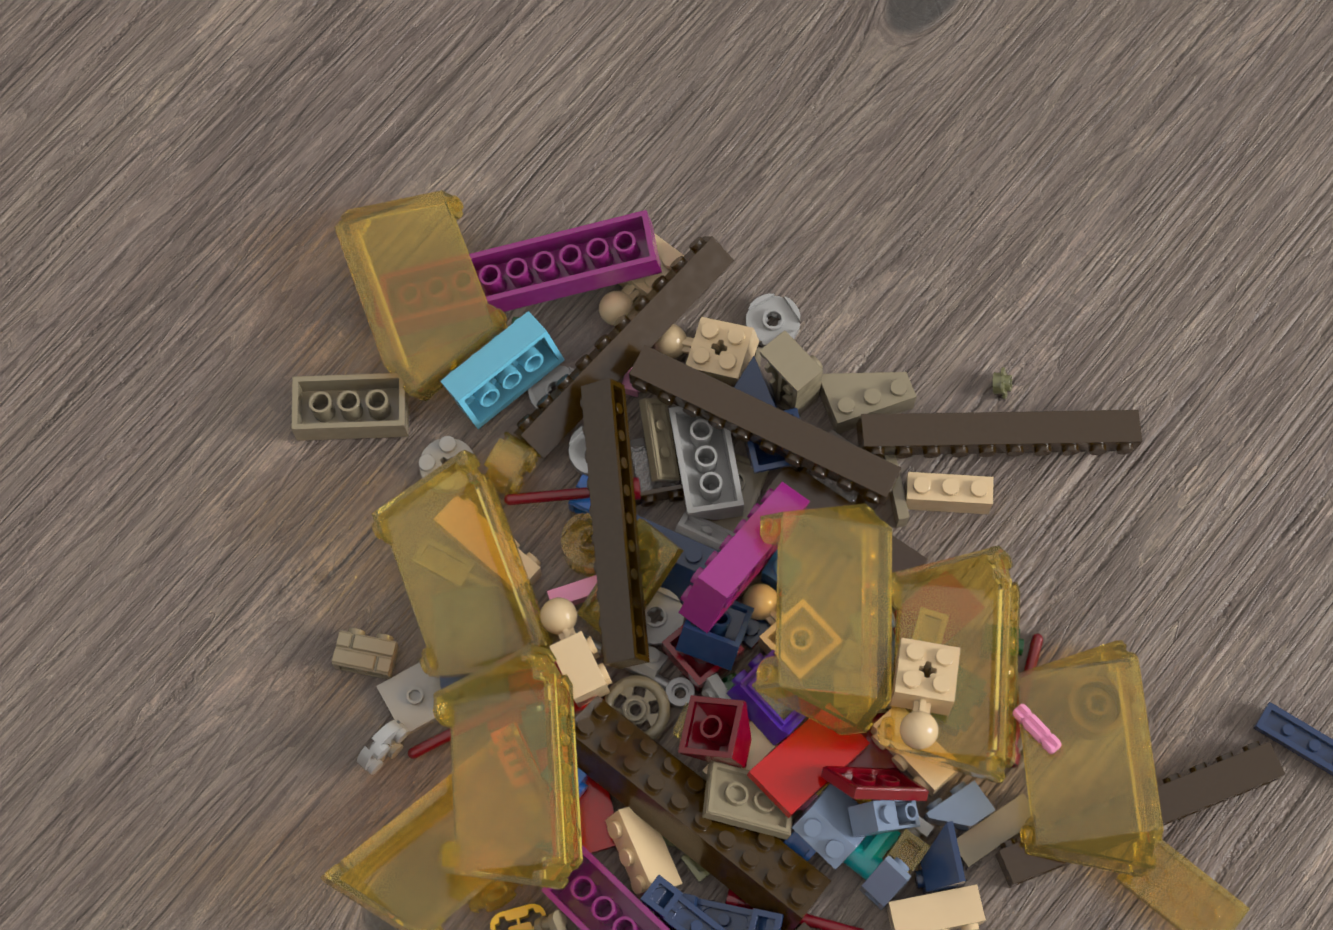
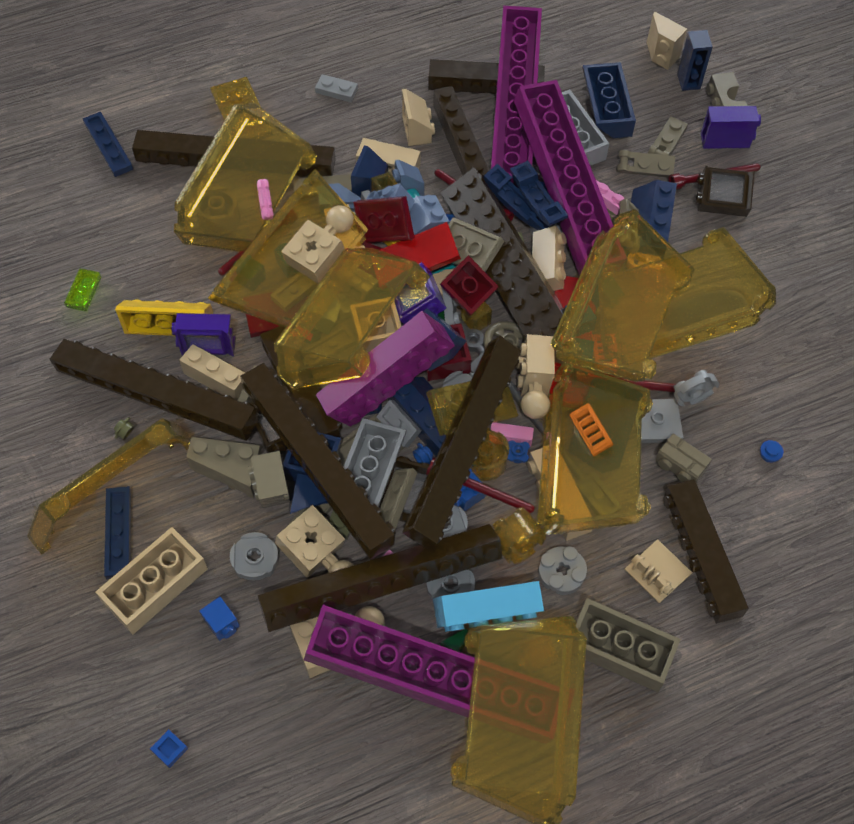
camera: 155 degrees left, 10 degrees down
(267, 722) = (771, 451): none -> blue plate
(303, 557) = (705, 552): none -> dark brown brick
(344, 513) = (658, 571): none -> tan hinge
(483, 599) = (584, 416): none -> orange slope
(560, 567) = (518, 457): none -> blue plate
(659, 514) = (422, 454): none -> blue plate
(736, 115) = (169, 748): none -> blue plate
(765, 243) = (220, 619): none -> blue brick
(854, 241) = (152, 580): none -> tan brick
(926, 277) = (117, 530): none -> dark blue plate
(959, 357) = (58, 503): none -> clear yellow windscreen
(989, 525) = (205, 331): none -> dark purple window
(1056, 530) = (155, 316): none -> yellow slope
(1177, 524) = (82, 289): none -> clear neon green plate

